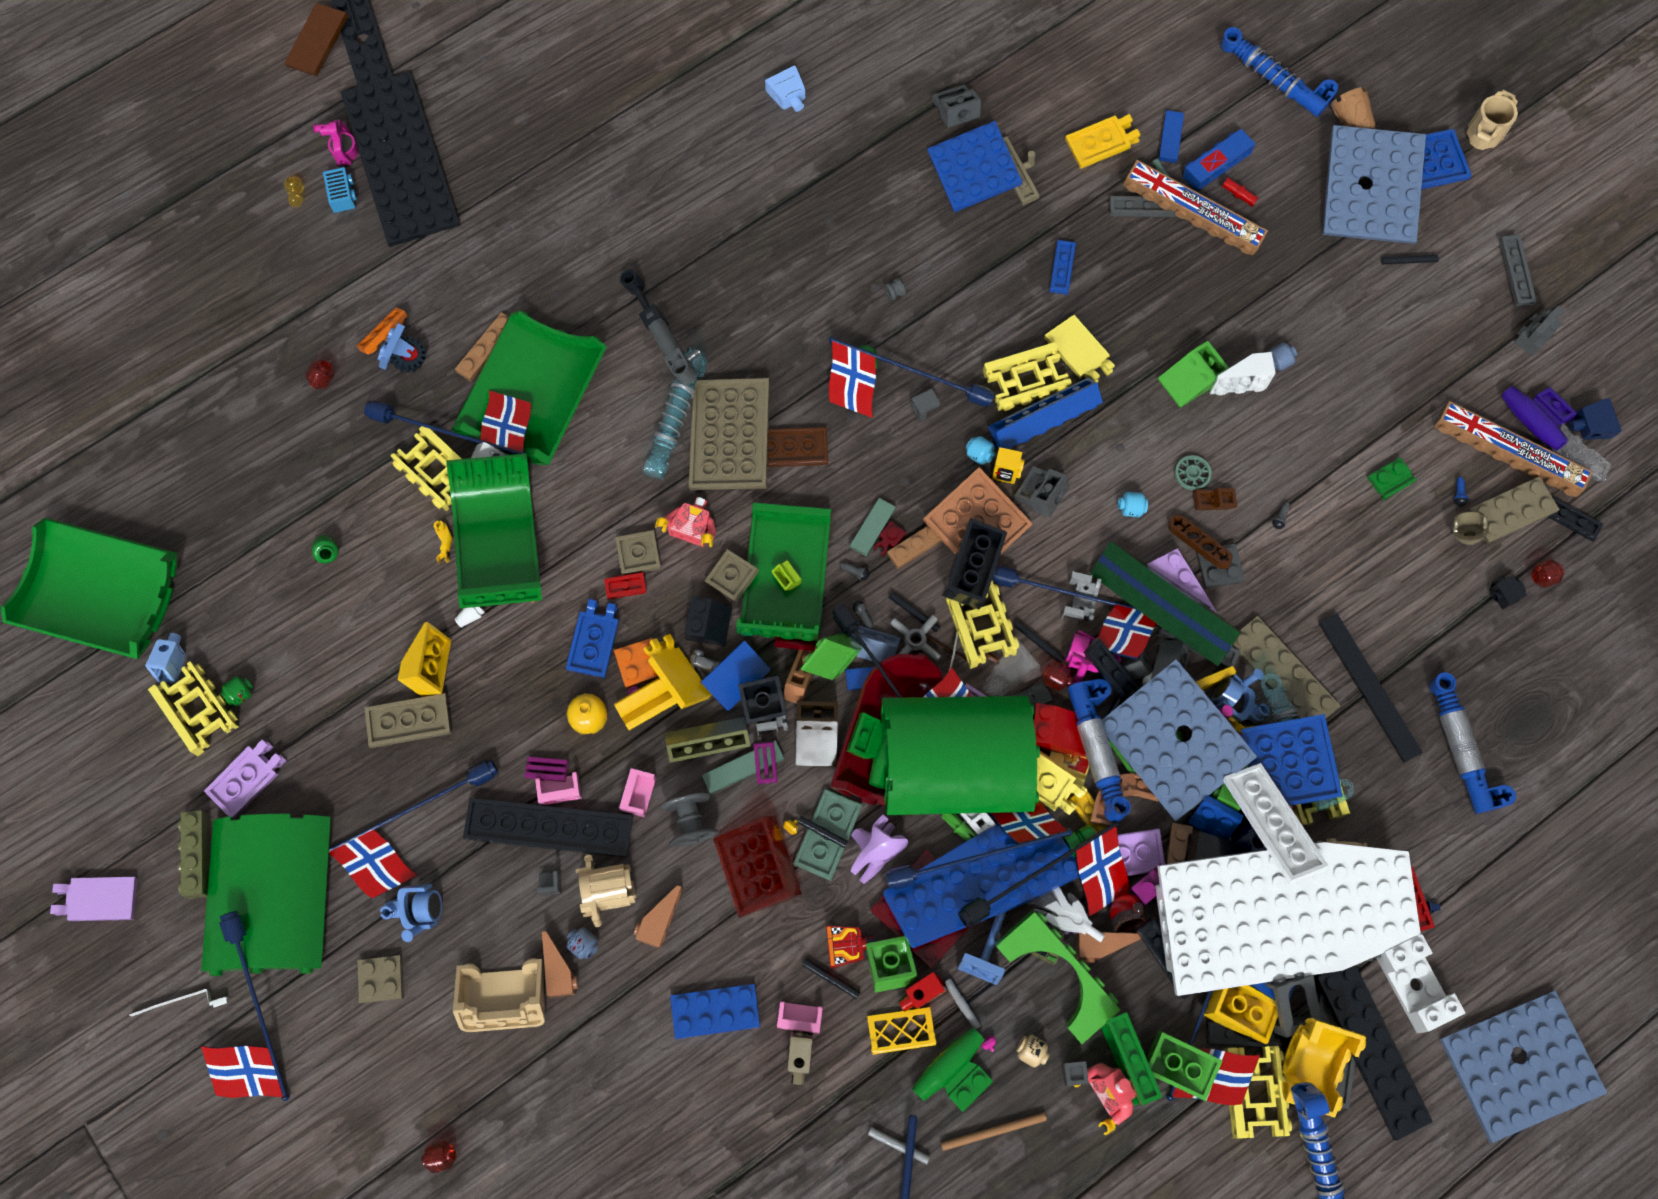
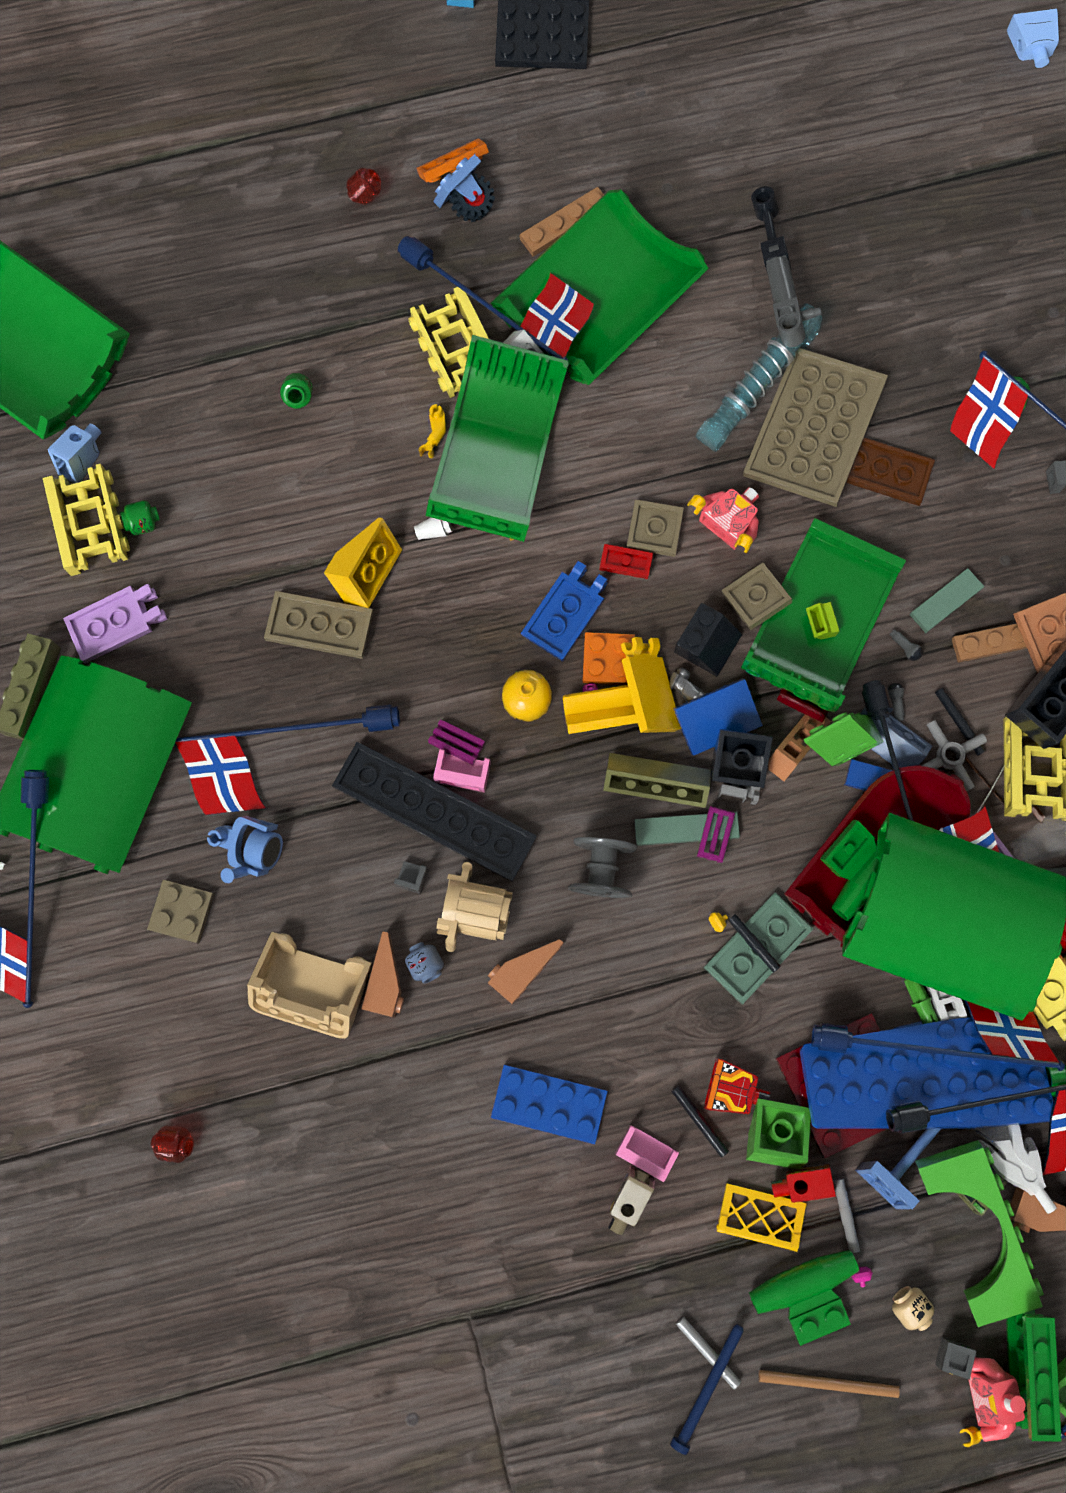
camera: 25 degrees right, 5 degrees up
(637, 792) = (552, 811): bright pink panel -> none
(757, 866) = (661, 953): clear red slope -> none
(816, 734) = (790, 823): slope -> none
(876, 848) = (813, 988): lavender piece -> none
(890, 536) = (963, 620): dark red plate -> none

